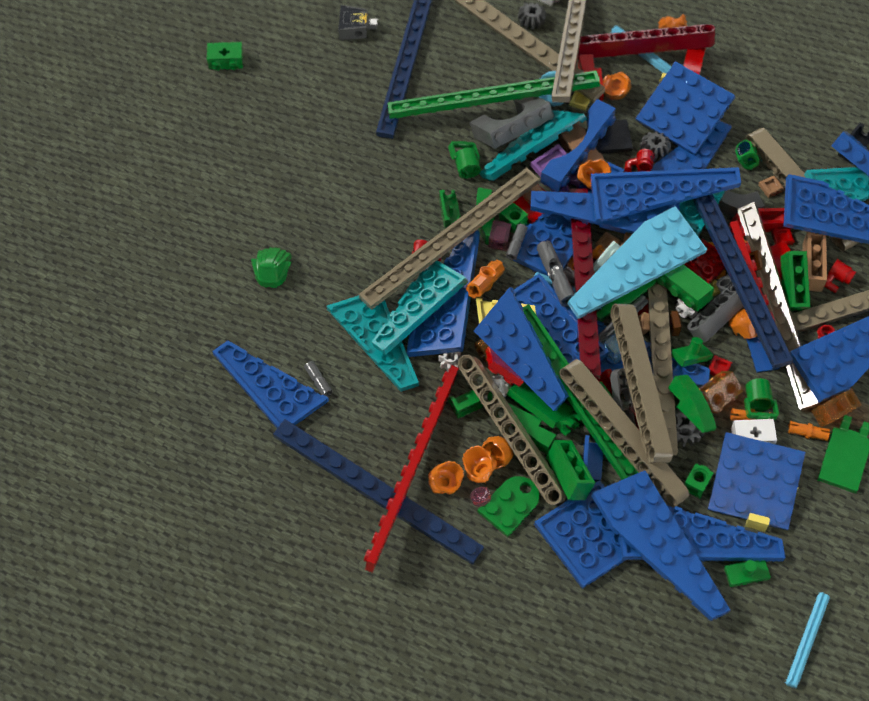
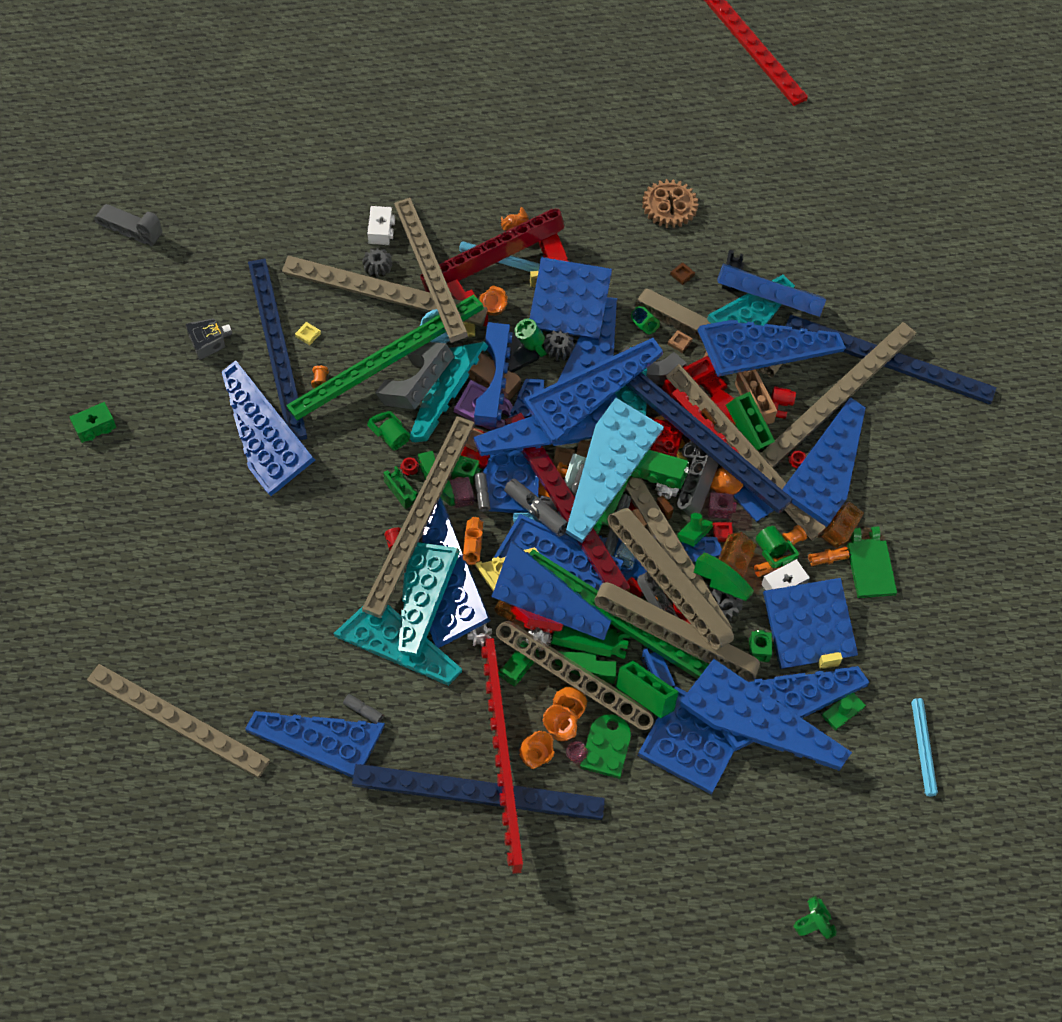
camera: 30 degrees left, 0 degrees up
(165, 323) = (178, 721): none -> dark tan plate
(271, 266) = (257, 617): green hair -> none
(359, 128) = (268, 442): none -> wing
(432, 89) = (320, 375): none -> orange bush
(441, 52) = (307, 333): none -> light yellow tile
(467, 192) = (409, 462): none -> red plate
(592, 167) = (517, 392): orange hair -> none
(631, 127) = (530, 336): none -> green piece
(643, 161) = (556, 363): red piece -> none
(729, 336) = (716, 511): none -> clear pink brick
(785, 399) = (795, 535): none -> orange bush
(806, 128) = (682, 273): none -> reddish brown tile
(840, 66) = (658, 206): none -> medium nougat gear

